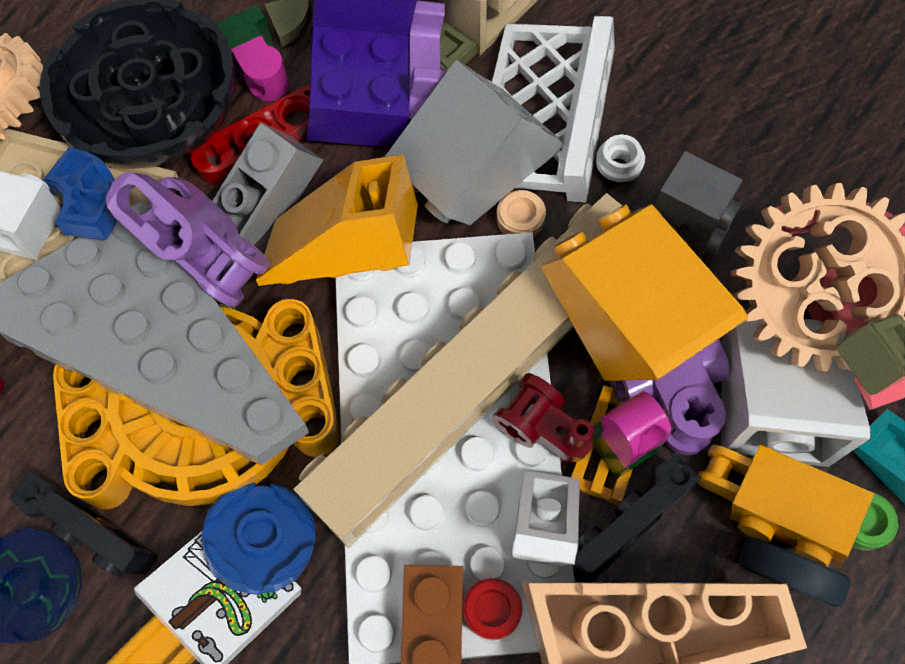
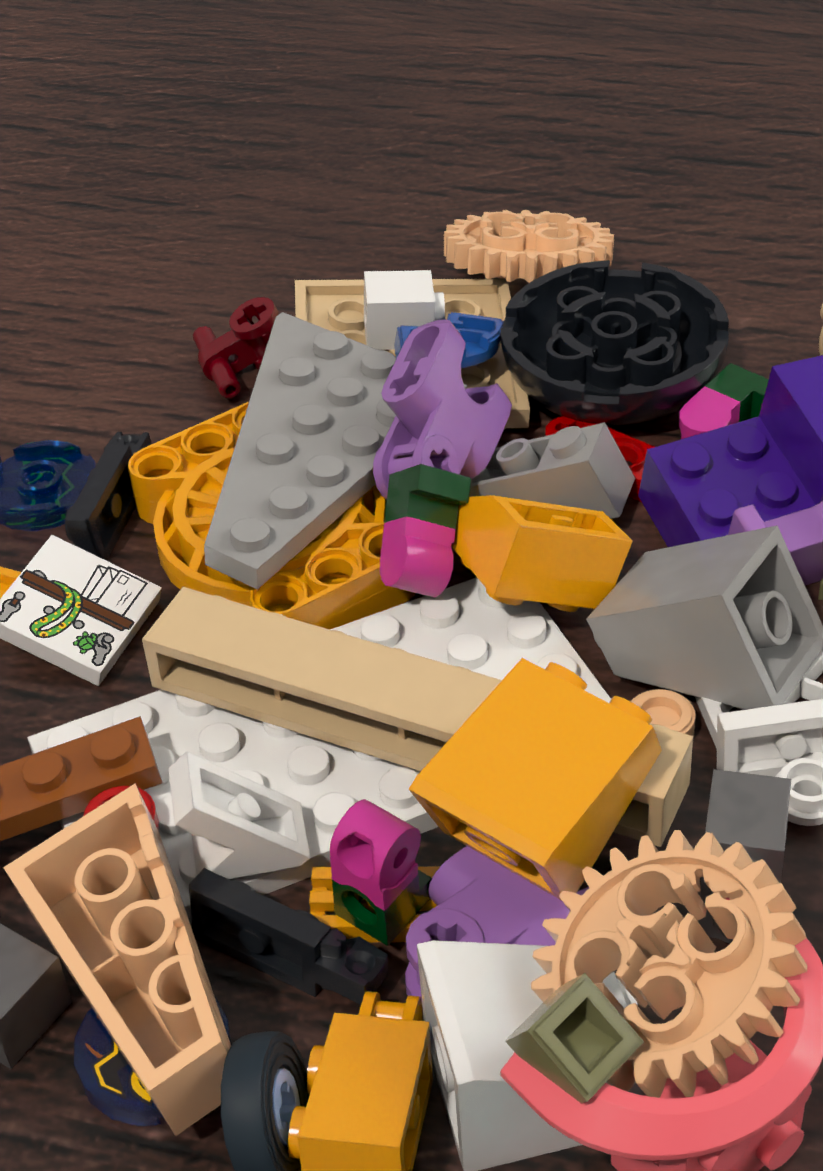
camera: 70 degrees right, 25 degrees down
(258, 538) = (116, 612): blue tile -> none
(310, 289) = (421, 528): none -> leg
(544, 421) = (365, 772): dark red piece -> none

